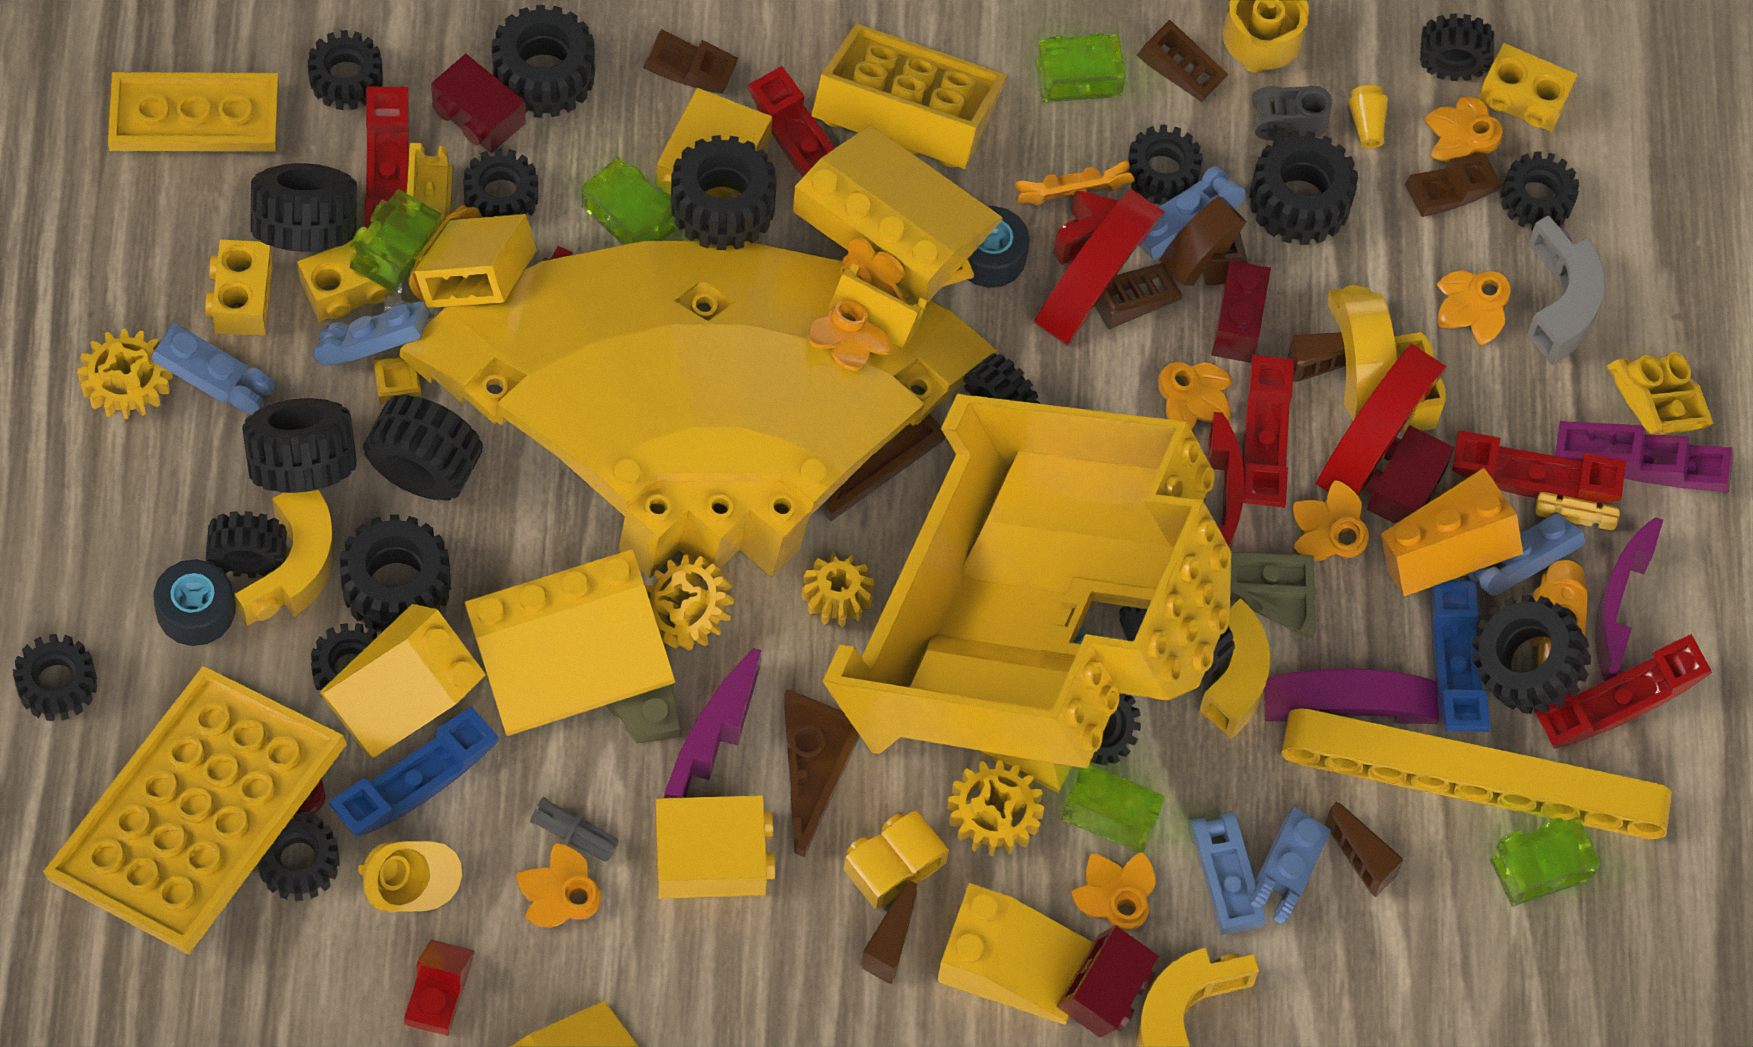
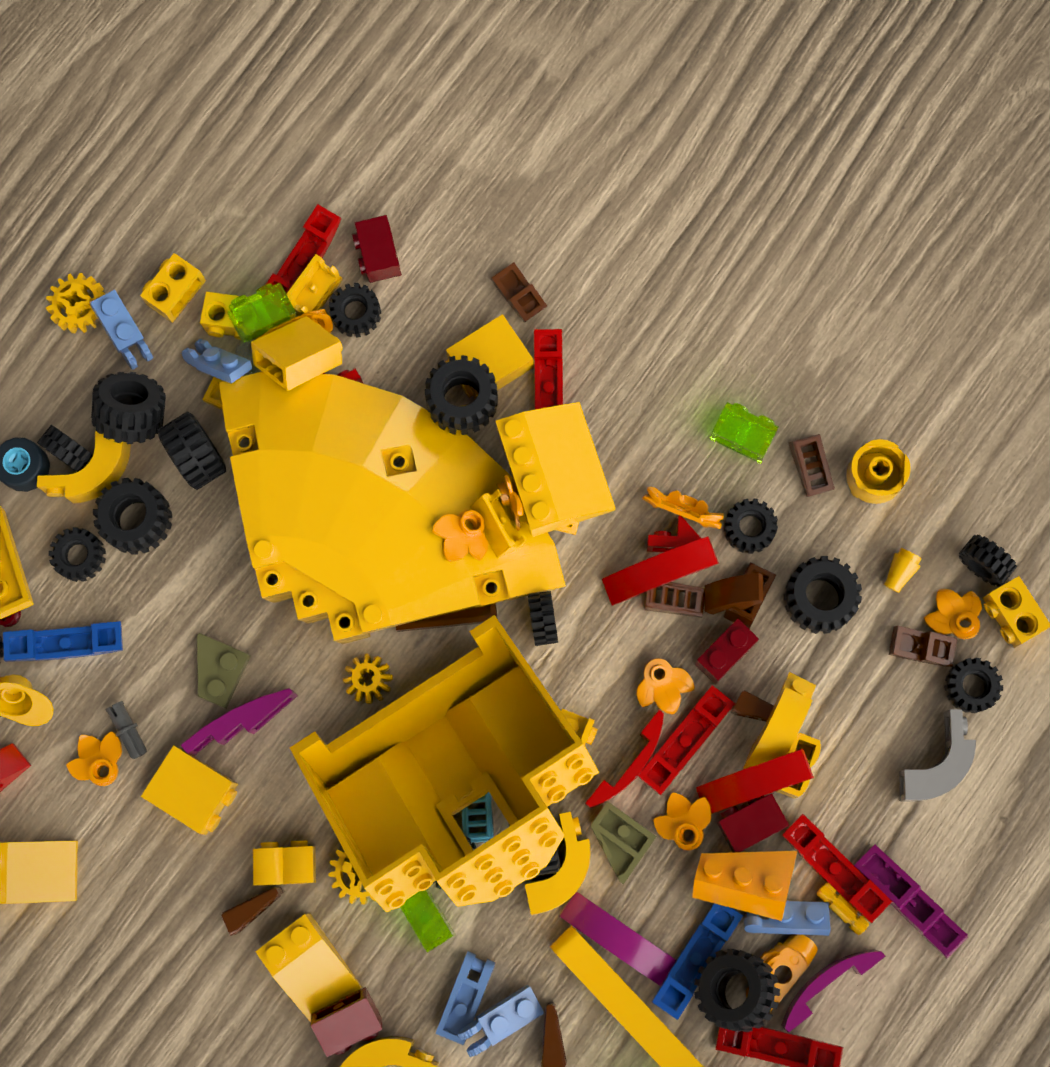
camera: 50 degrees right, 15 degrees up
(193, 111) = (221, 162): yellow plate -> none
(303, 207) = (229, 260): black tyre -> none
(344, 50) = (314, 170): black tyre -> none
(402, 680) = (90, 584): yellow slope -> none
(545, 34) = (430, 223): black tyre -> none
(569, 642) = (195, 619): yellow slope -> none
(627, 204) = (415, 362): clear neon green brick -> none
(688, 603) = (276, 635): yellow gear -> none
(818, 751) = (277, 782): reddish brown wing -> none
(910, 94) = (629, 389): yellow slope -> none
(1002, 253) = (613, 531): black wheel -> none
(1115, 886) = (398, 961): light orange plate -> none
(1187, 204) = (744, 563): medium blue plate -> none
(1289, 111) = (851, 537): dark grey piece -> none
(1470, 306) = (873, 733): light orange plate -> none
(1662, 393) = (949, 869): yellow slope -> none

